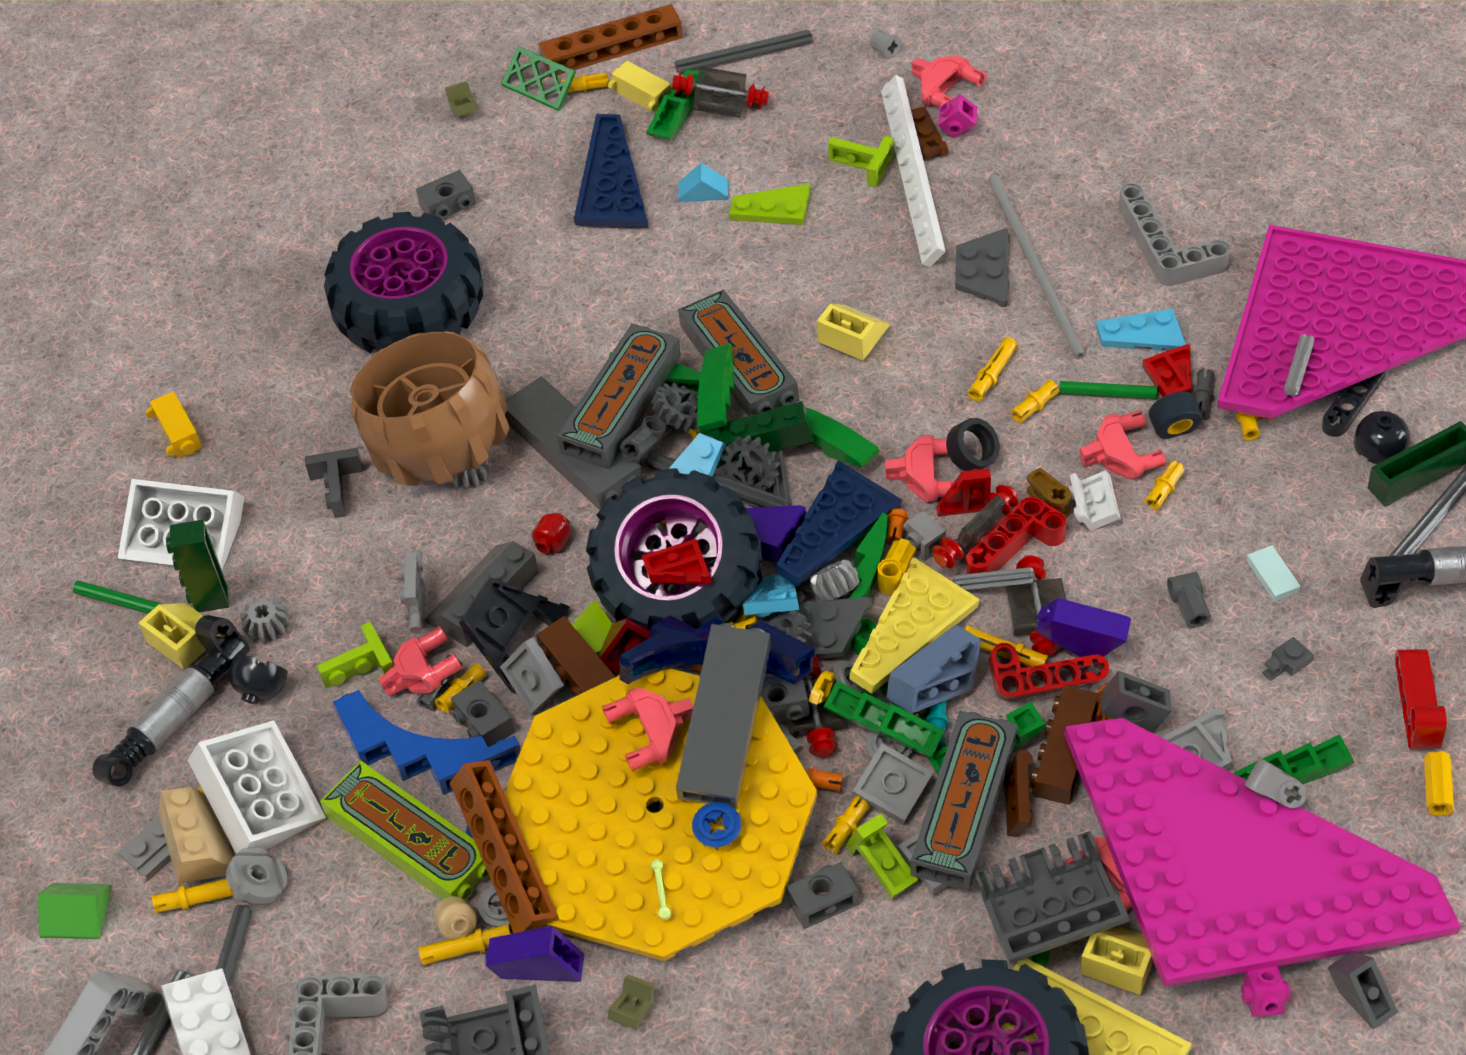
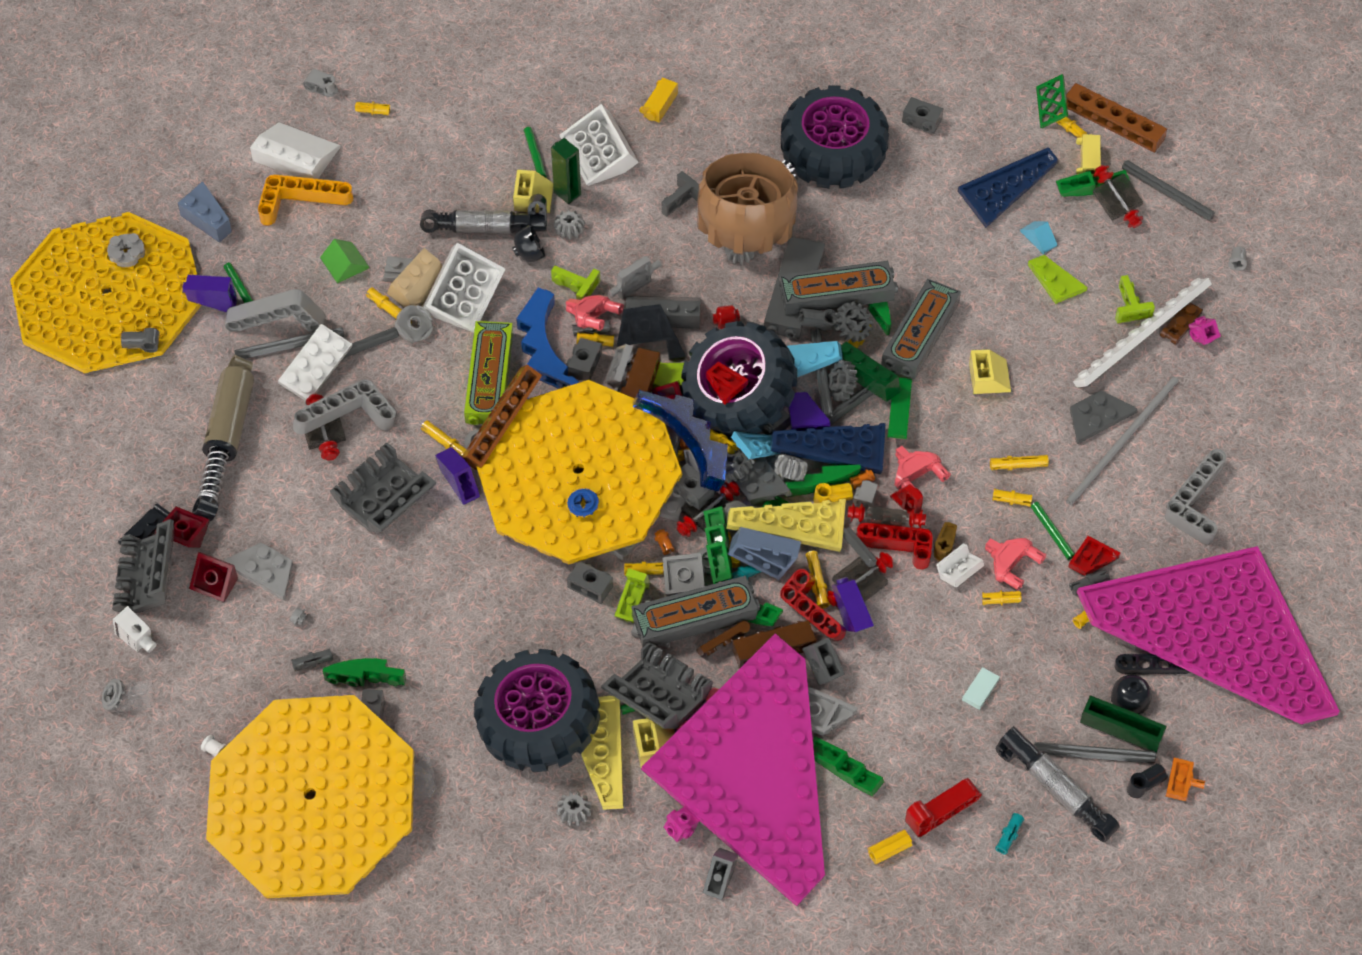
camera: 50 degrees right, 5 degrees up
(455, 918) = (454, 424): tan head -> none
(461, 100) = (1002, 75): olive bracket -> none
(632, 1003) = (463, 535): olive bracket -> none
(658, 719) = (621, 436): coral connector -> none
(664, 912) = (518, 512): yellowish green hinge -> none
(715, 387) = (883, 326): green slope -> none
(724, 715) = (646, 462): dark grey brick -> none
(822, 688) = (714, 502): yellow tile -> none
(942, 75) = (1234, 303): coral connector -> none
(987, 438) = (960, 487): black tyre -> none
(1148, 329) = (1117, 527): medium azure wing -> none
(1175, 415) = (1054, 574): black wheel -> none
(1188, 594) = (929, 649): dark grey piece -> none
(1272, 782) = (818, 759): light grey piece -> none
(1288, 657) = (924, 727): dark grey plate -> none
(1299, 365) = (1140, 616): light grey axle -> none

